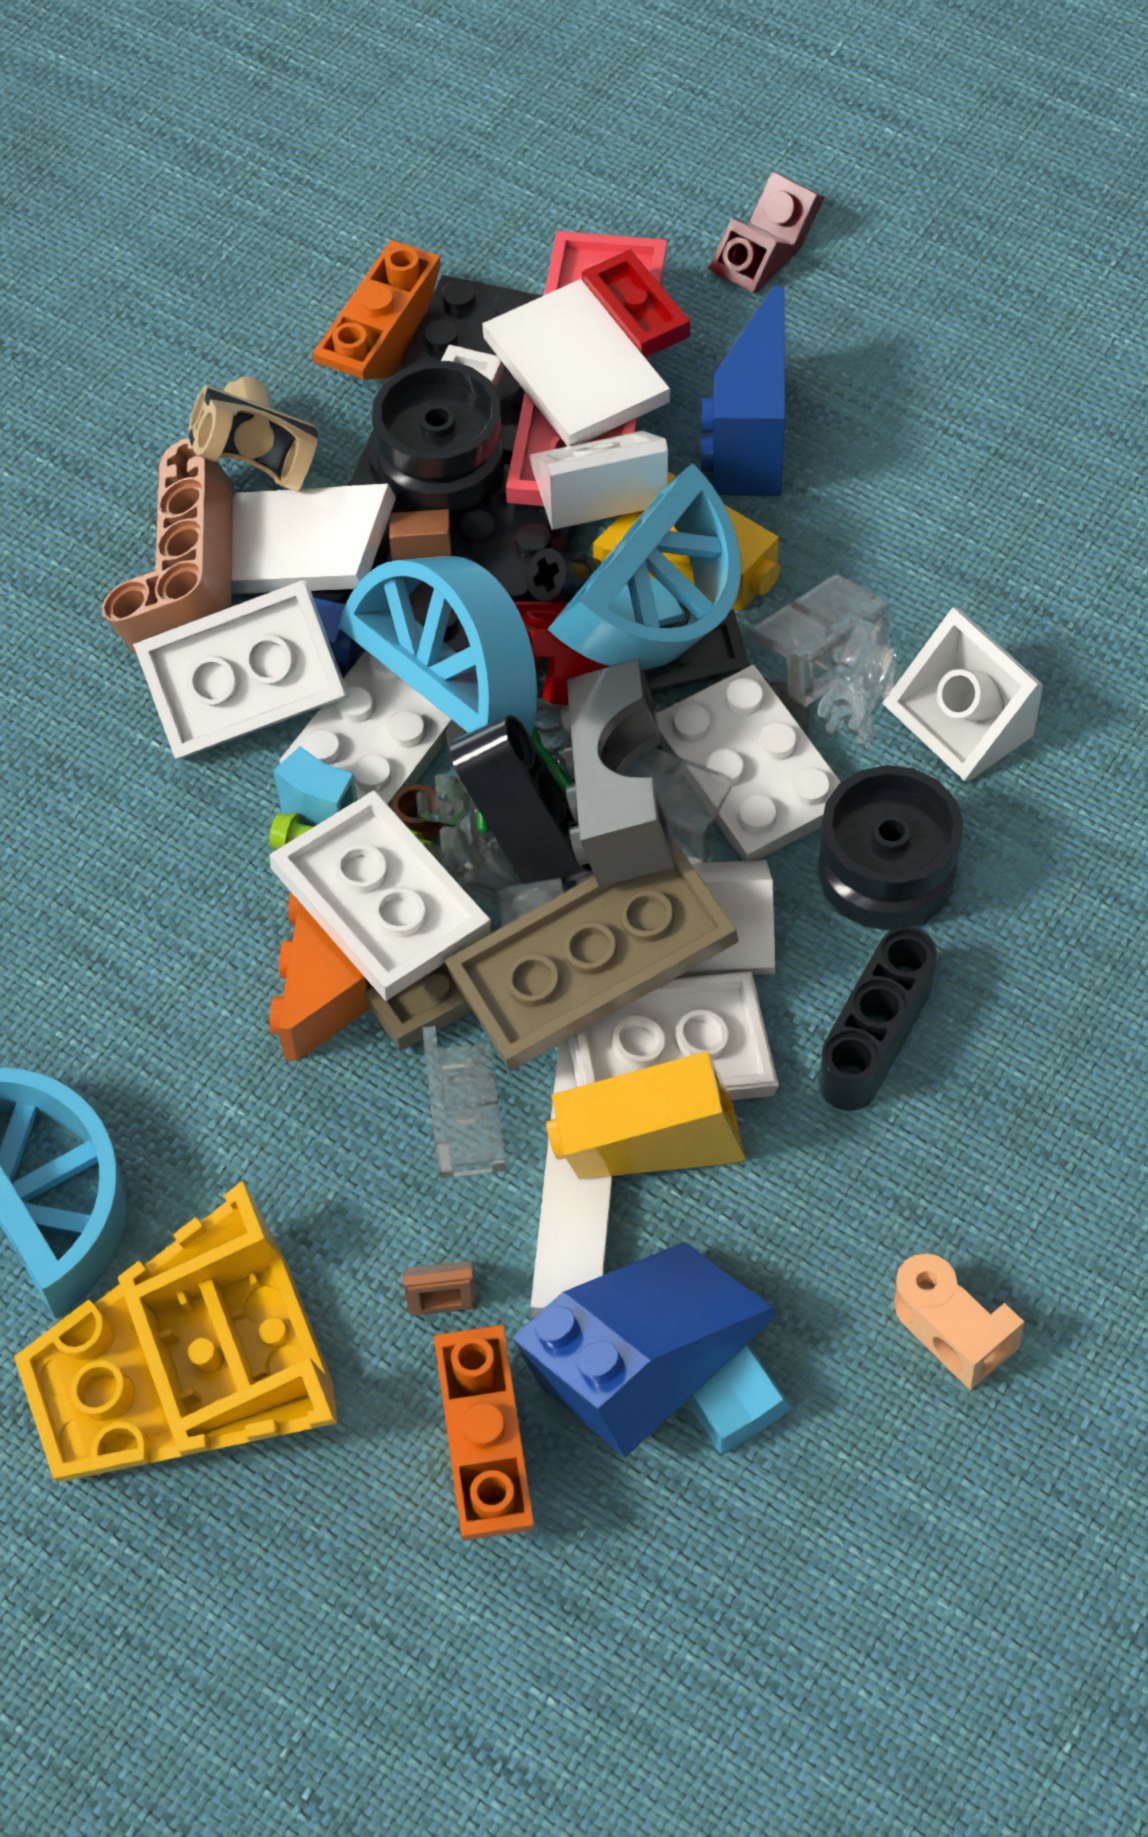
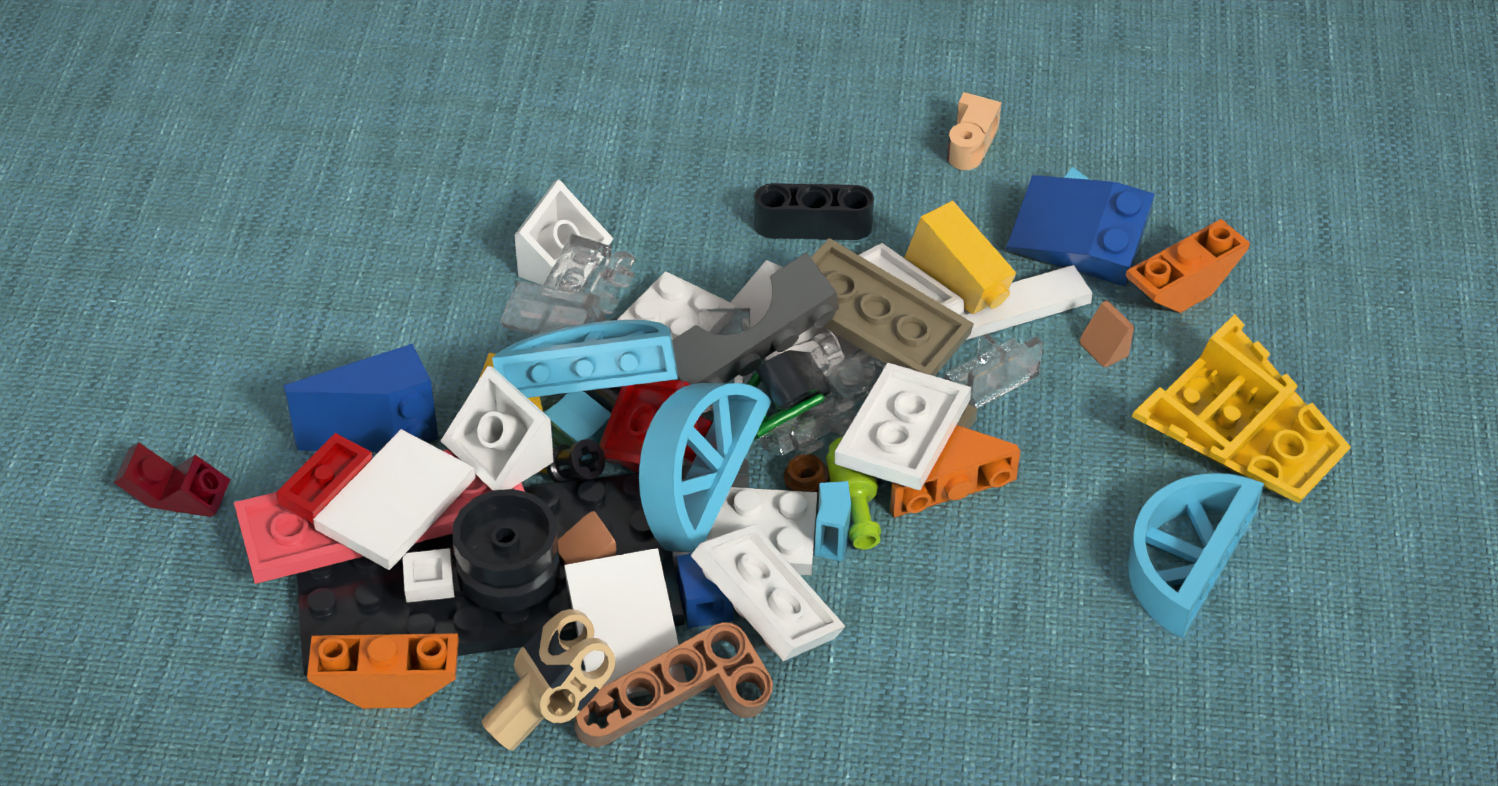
camera: 120 degrees left, 10 degrees down
(889, 847) = (700, 231): black wheel -> none

